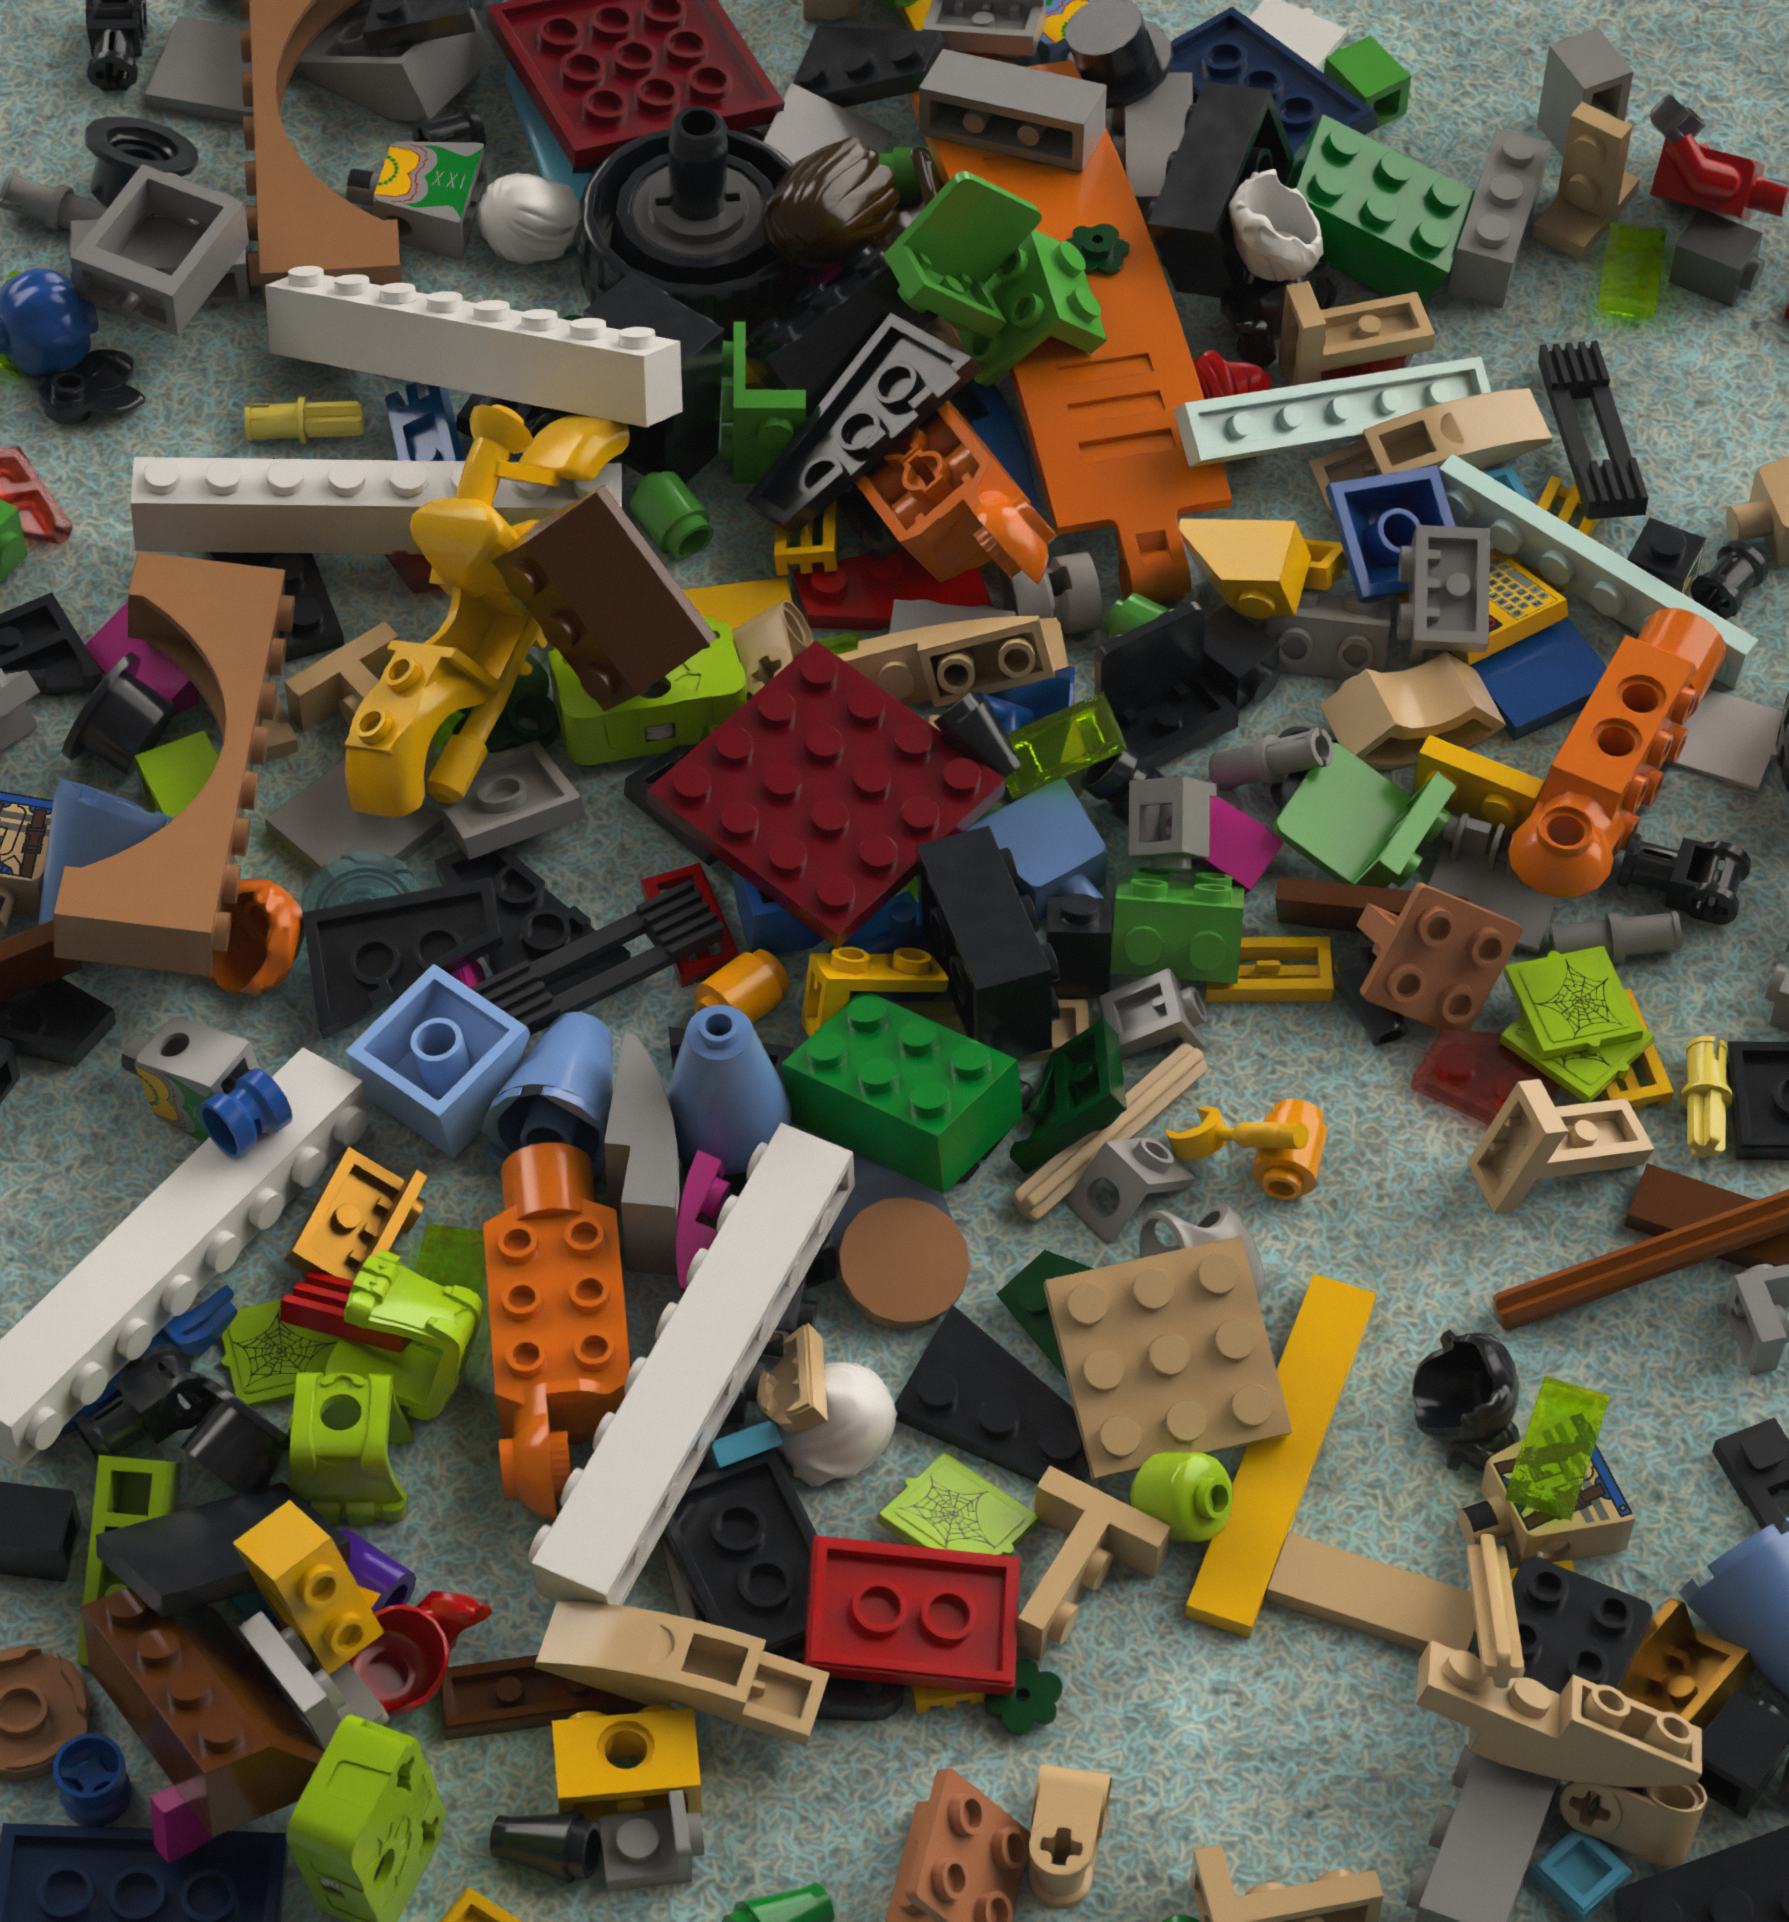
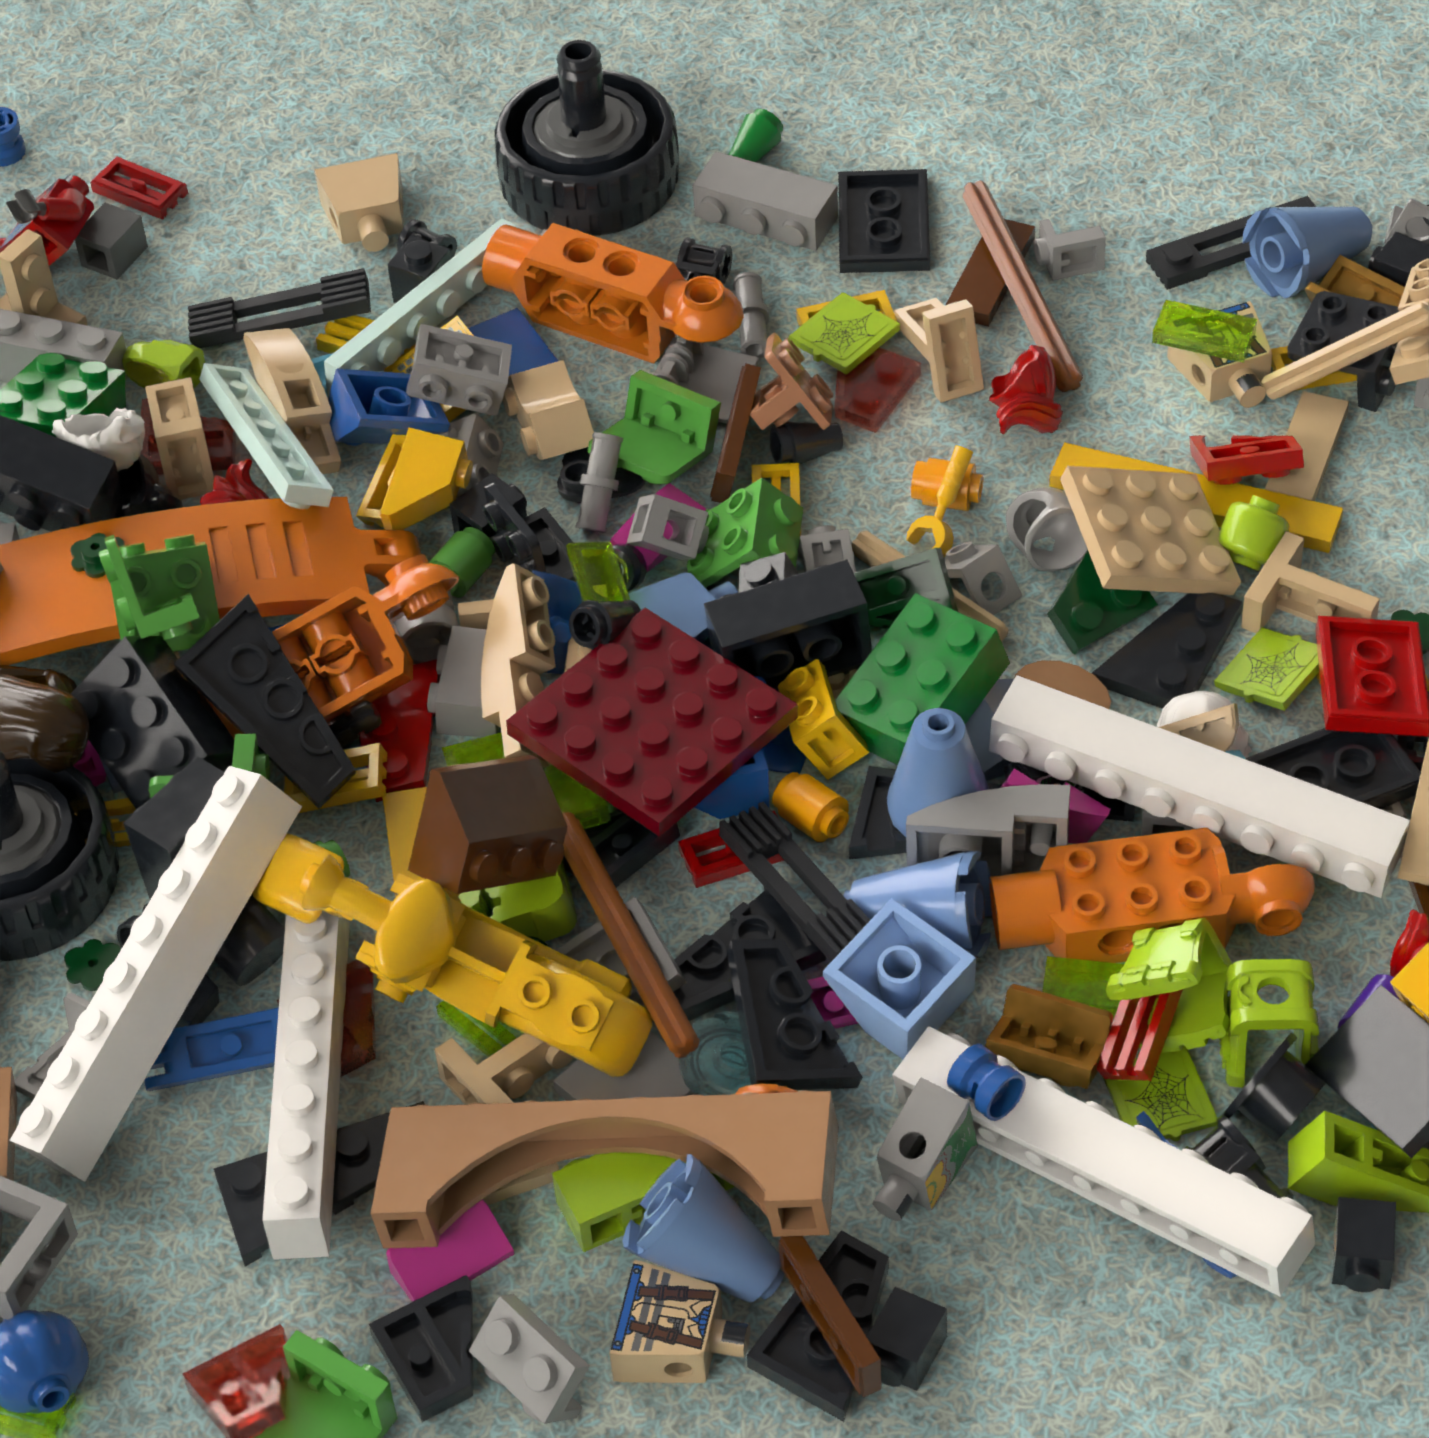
camera: 85 degrees left, 5 degrees down
(95, 381) = (110, 1328): black plate -> none
(120, 718) = (527, 1248): black piece -> none
(303, 420) = (168, 1152): light yellow axle -> none
(523, 783) = (628, 941): none -> dark orange axle
(1330, 1494) = (1247, 456): none -> red wing
(1458, 1249) = (1028, 393): none -> red hair
(1468, 1398) = (1150, 395): black hair -> none
(1484, 787) = (609, 390): yellow bracket -> none
(1491, 327) = (162, 362): none -> lime rock
(1573, 1002) = (821, 326): lime piece -> none
(1631, 271) = (108, 293): clear neon green tile -> none
(1706, 1096) = (888, 274): light yellow axle -> none

